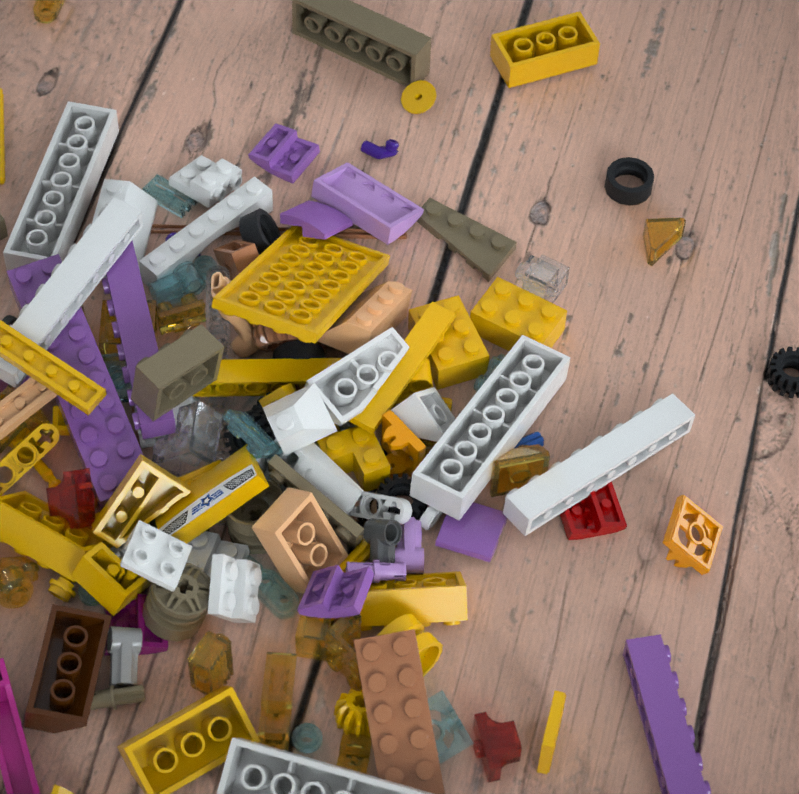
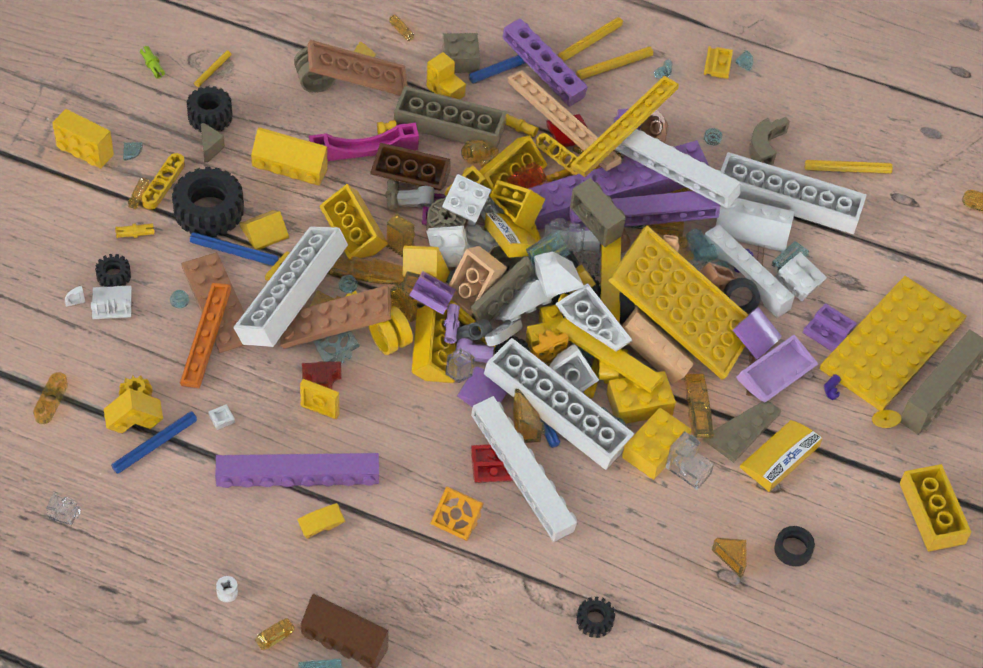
camera: 95 degrees right, 0 degrees up
(276, 618) = (425, 259): none -> yellow slope
(295, 90) = (893, 343): none -> yellow plate
(441, 558) = (460, 365): none -> clear panel
(450, 278) = (699, 406): none -> clear yellow slope
(496, 197) = (781, 454): none -> yellow slope
(751, 708) = (321, 519): none -> yellow slope

